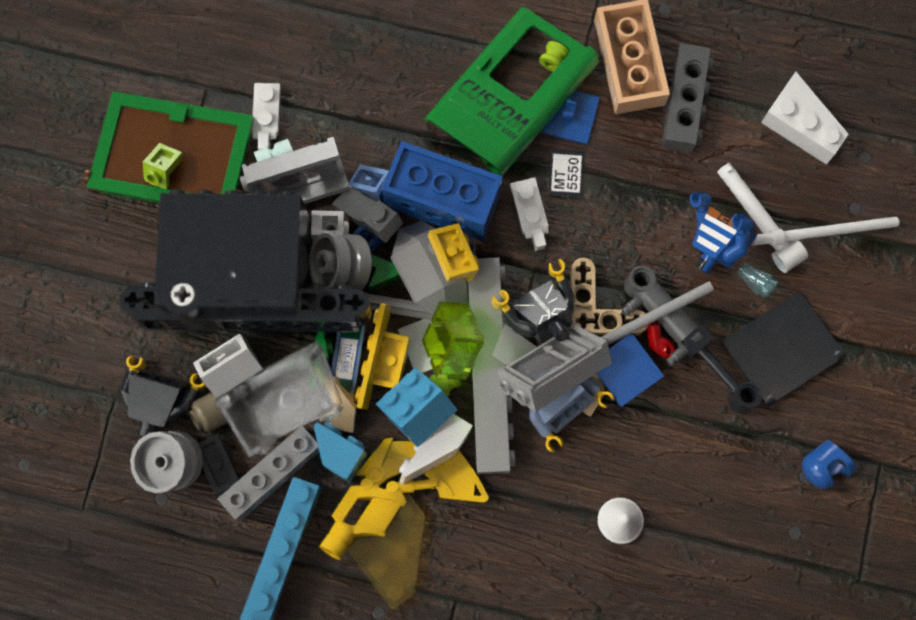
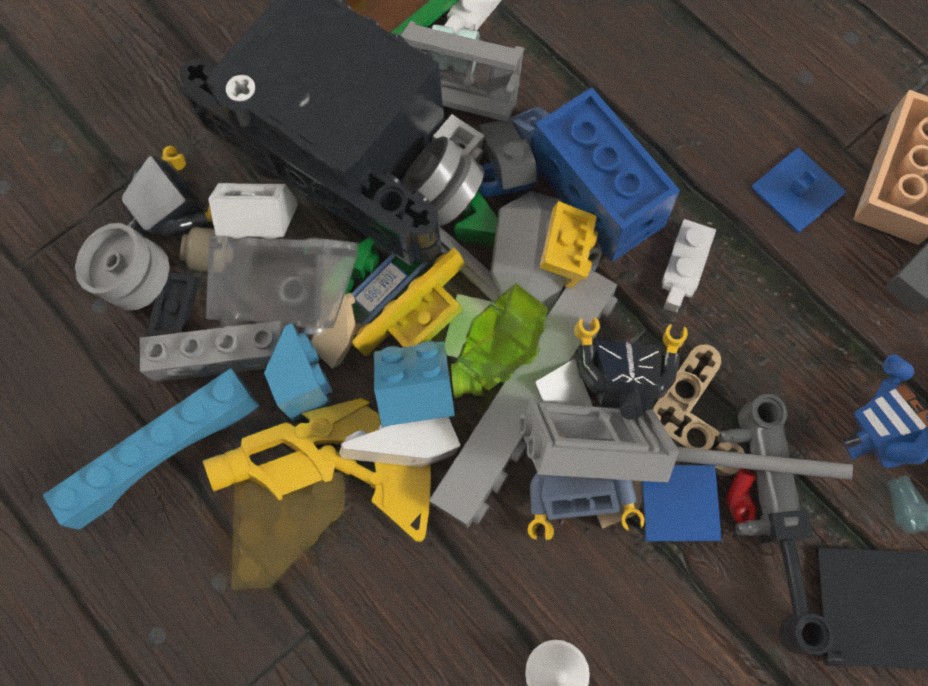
camera: 40 degrees right, 5 degrees down
(493, 118) = (718, 152): green piece -> none
(554, 55) = (821, 120): lime wheel -> none
(566, 173) = (754, 249): sticker -> none

